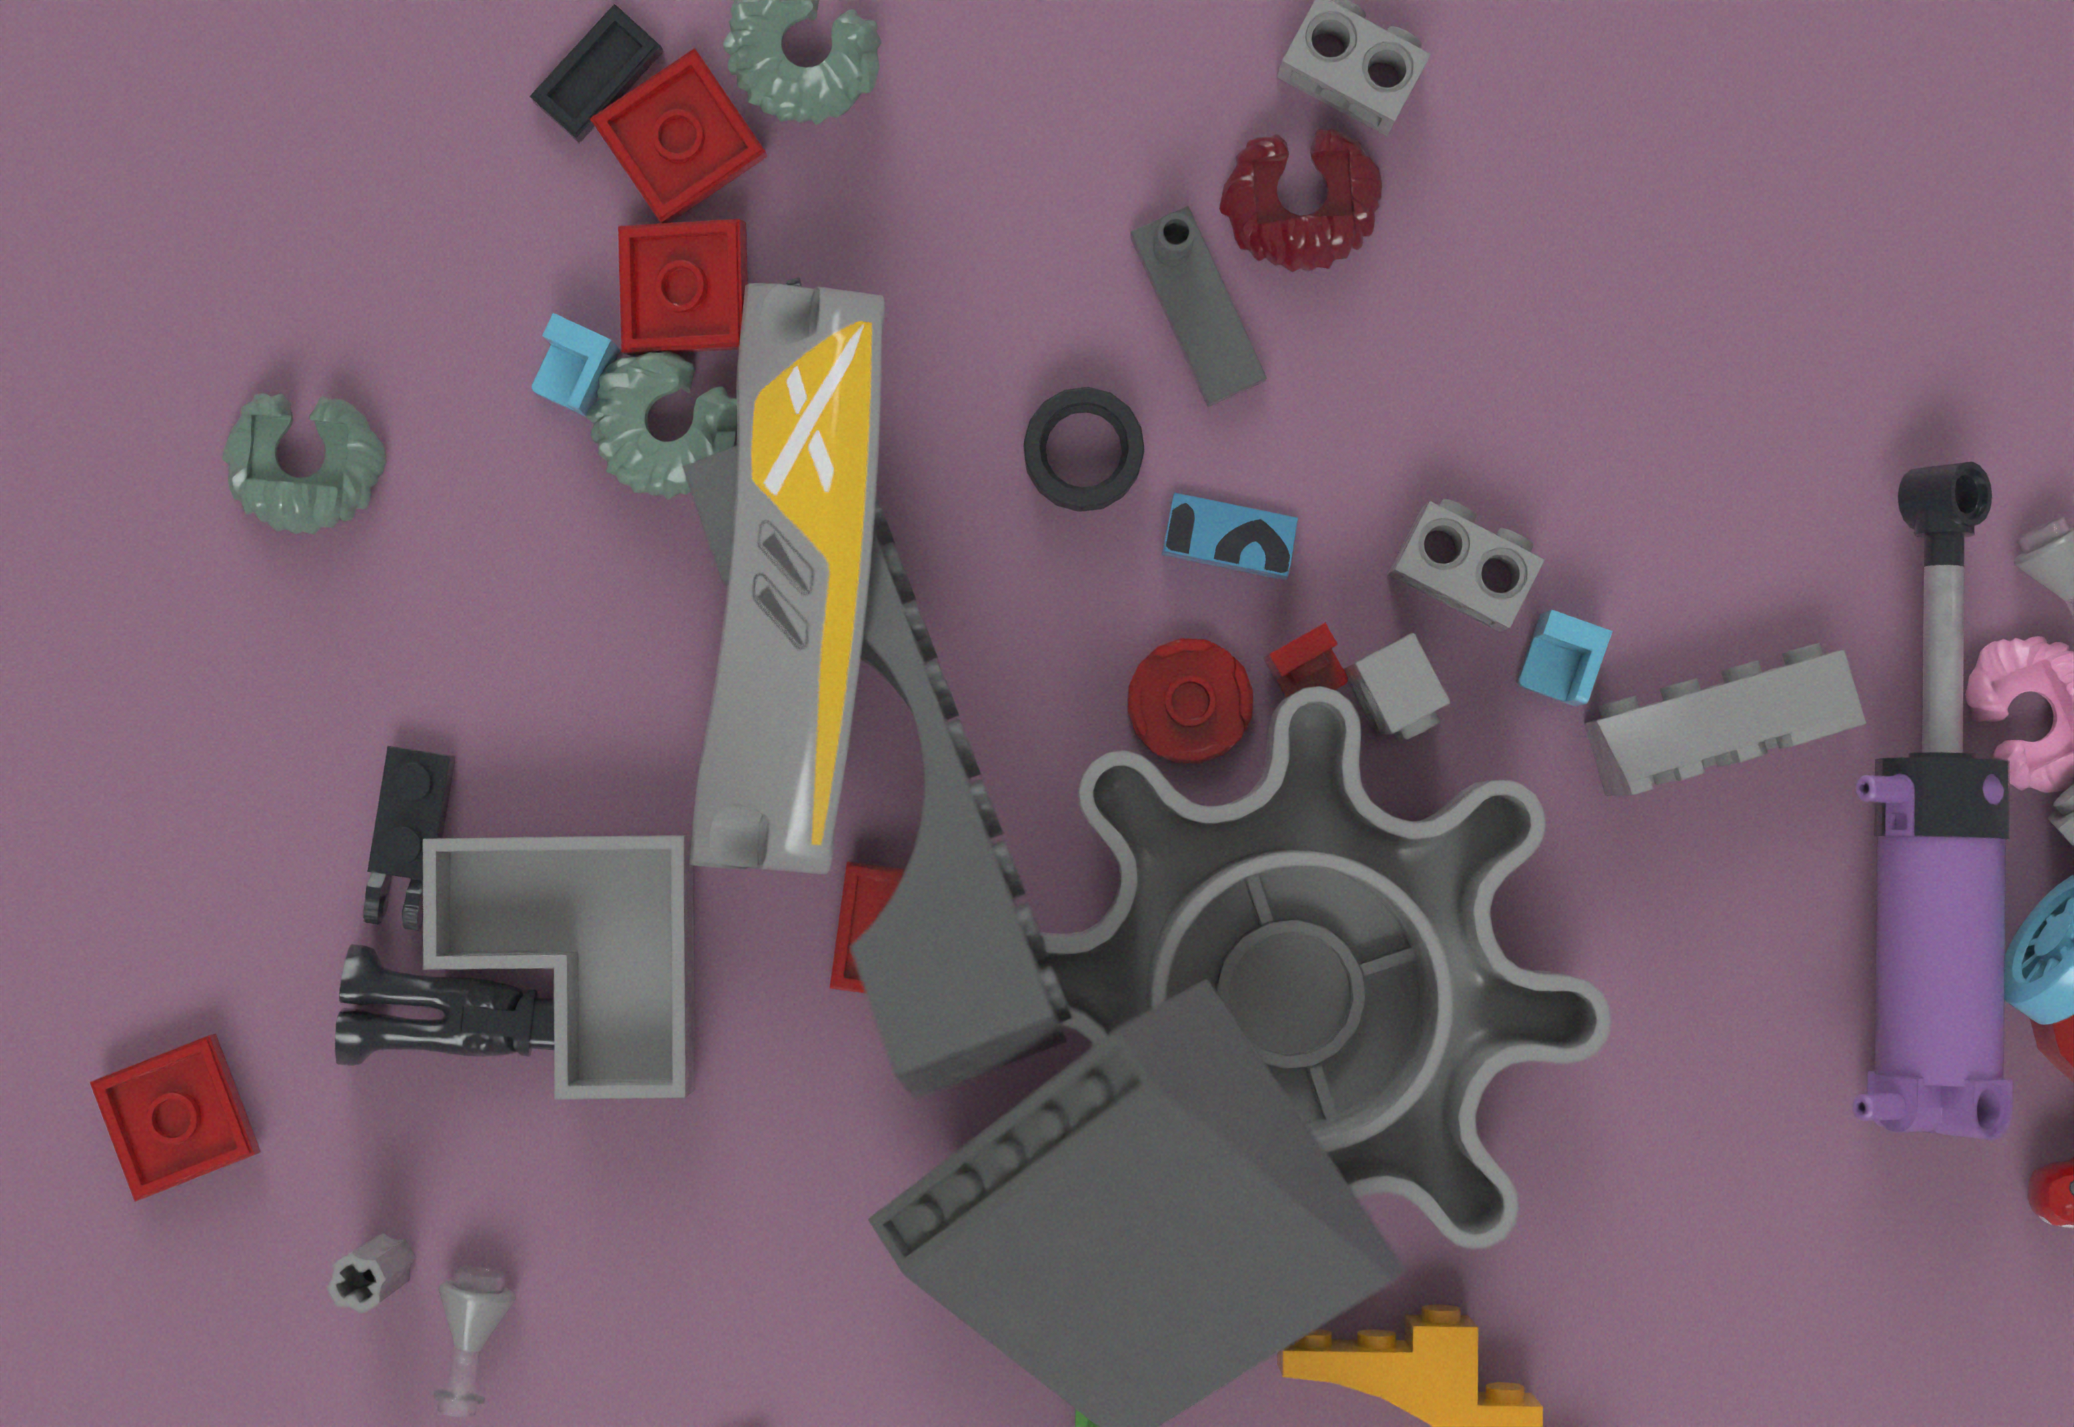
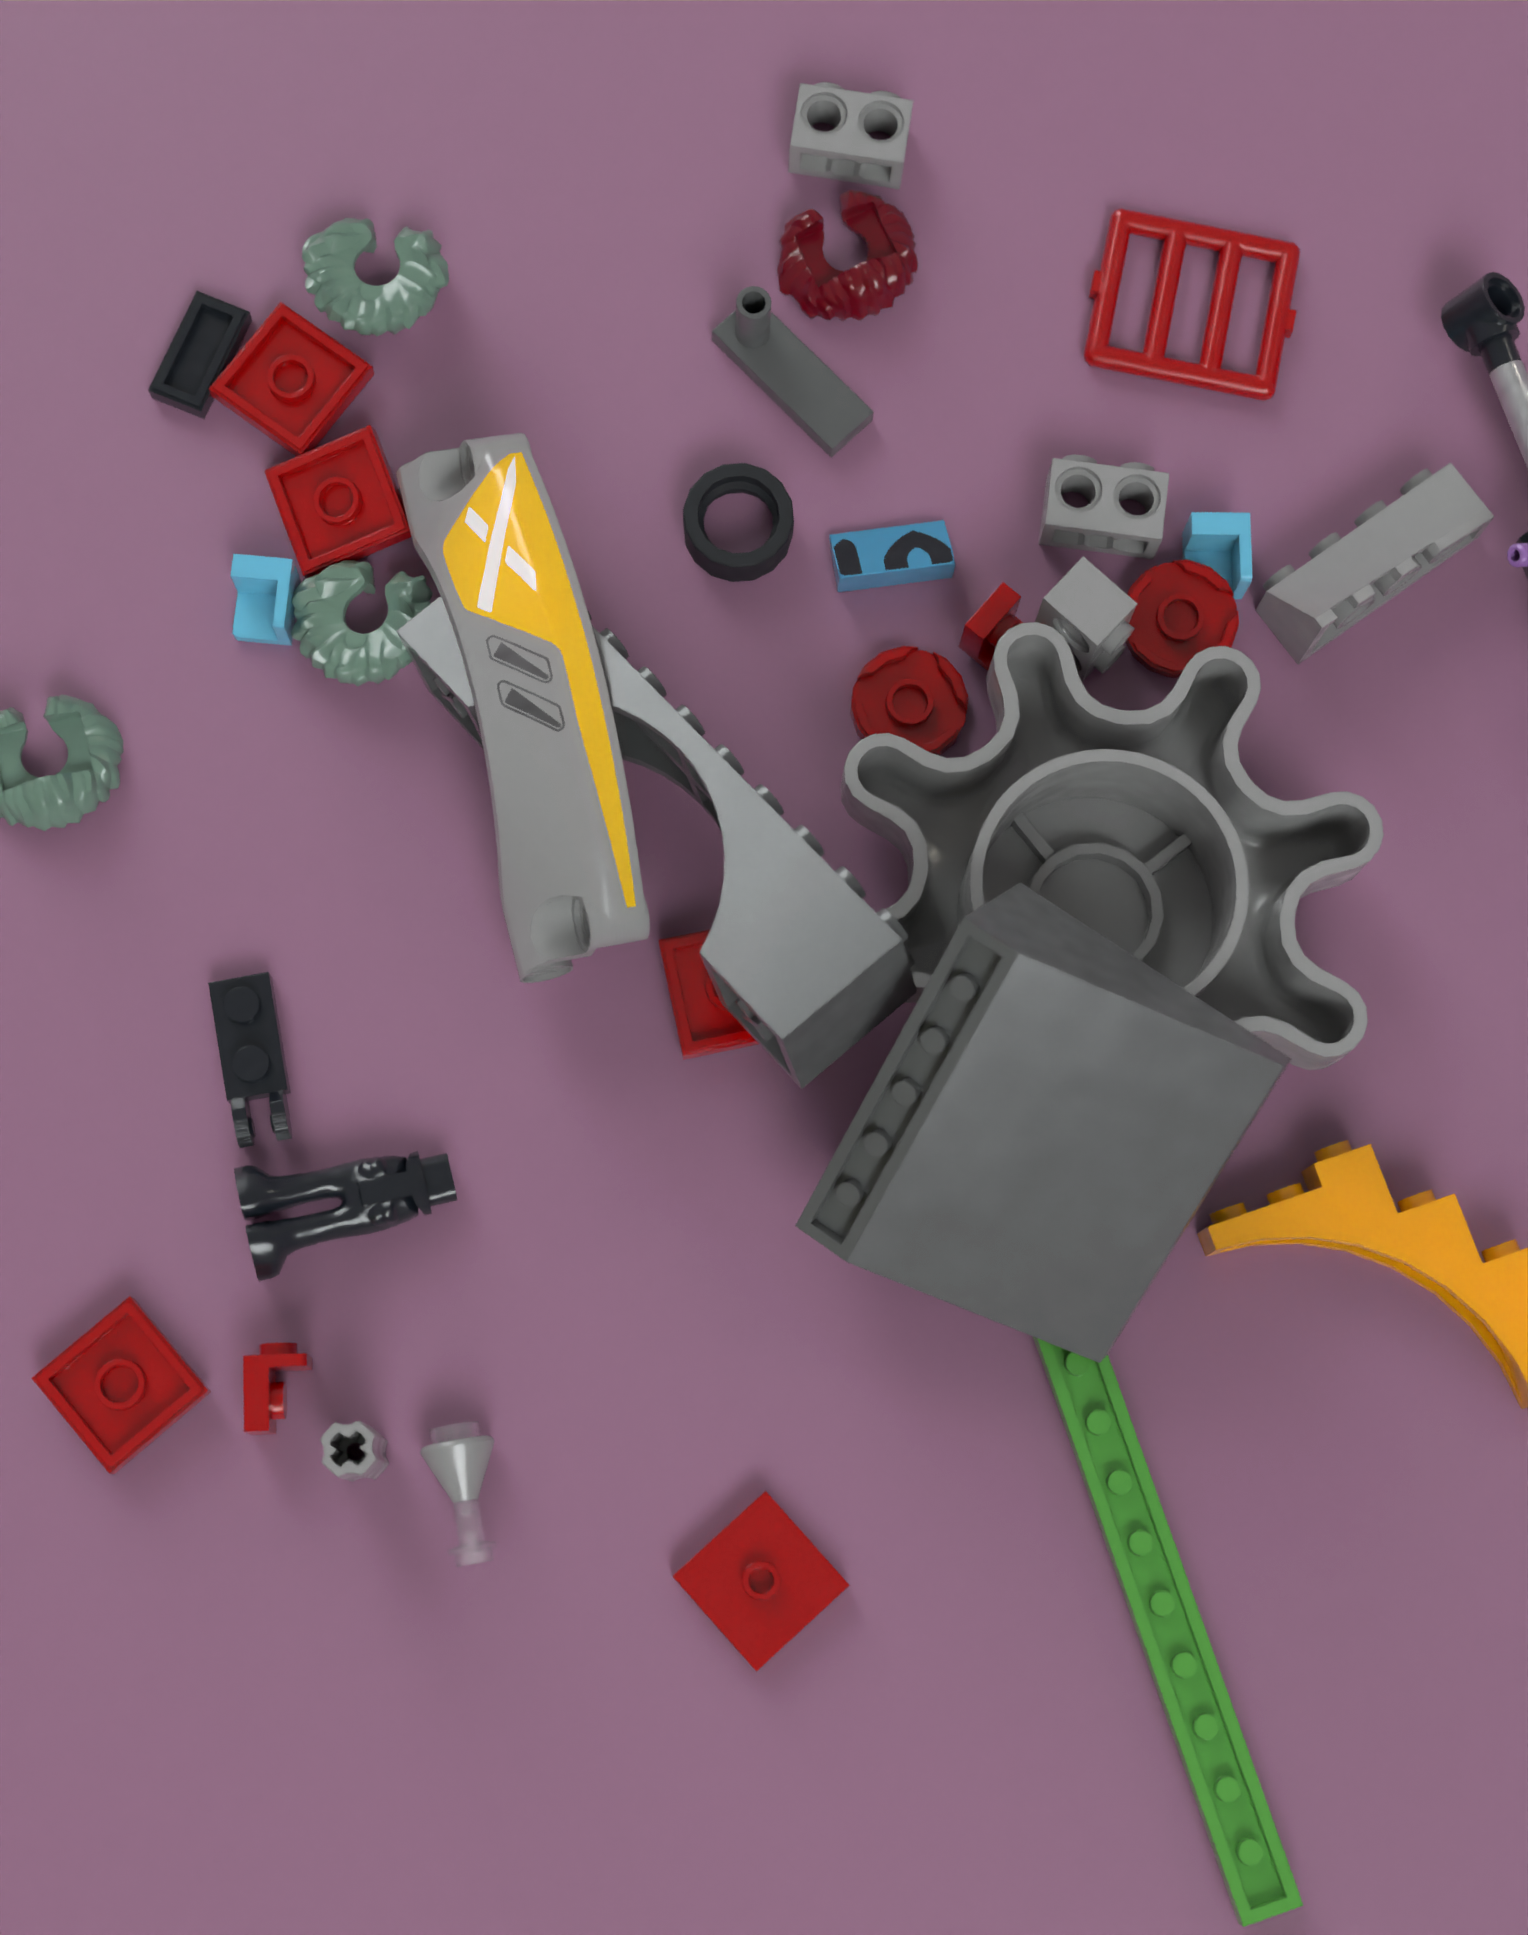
camera: 30 degrees left, 10 degrees down
(305, 1177) = (262, 1396): none -> red bracket
(611, 925) = (452, 1058): light grey piece -> none
(1501, 709) = (1180, 614): none -> red tile
(1711, 323) = (1231, 247): none -> red bar

